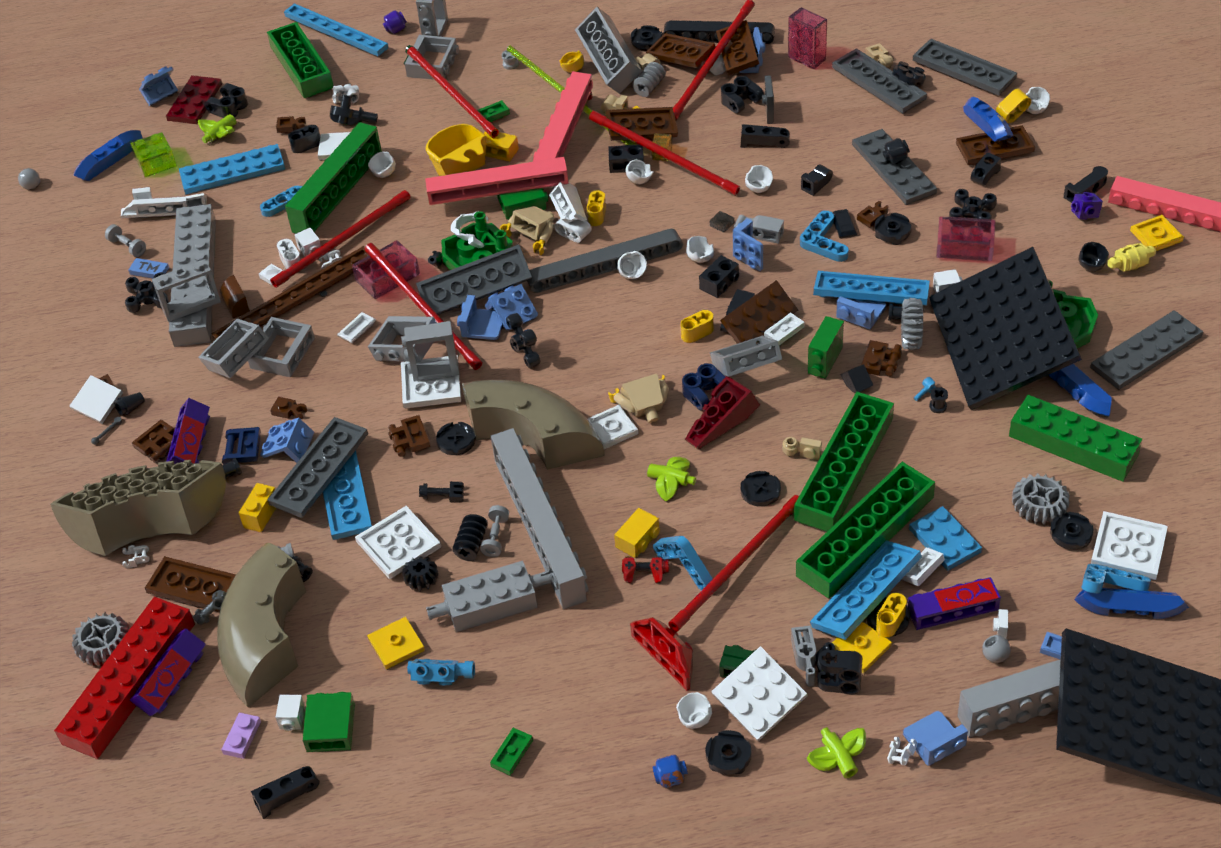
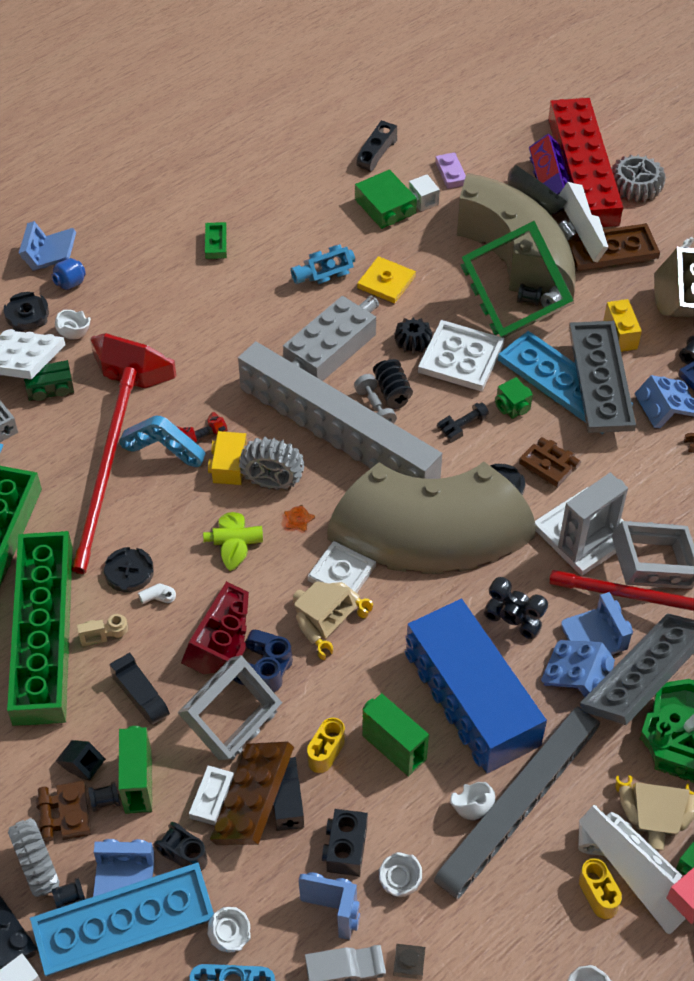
camera: 145 degrees right, 5 degrees up
(201, 590) = (586, 225): none -> white slope
(202, 658) = (535, 189): none -> pearl dark grey brick
(307, 562) = (550, 264): none -> green window
(392, 488) = (513, 398): none -> green brick
(585, 314) = (474, 686): none -> blue brick
(612, 498) = (271, 463): none -> light grey gear
(614, 471) = (294, 513): none -> clear orange plate
(653, 306) = (394, 734): none -> green brick
(671, 809) = (42, 250): none -> medium blue bracket
(747, 462) = (158, 592): none -> white arm
(796, 403) = (138, 688): none -> black leg
(815, 262) = (229, 929): none -> white hair
(817, 307) = (179, 844): none -> black piece
(855, 355) = (104, 796): none -> black bush

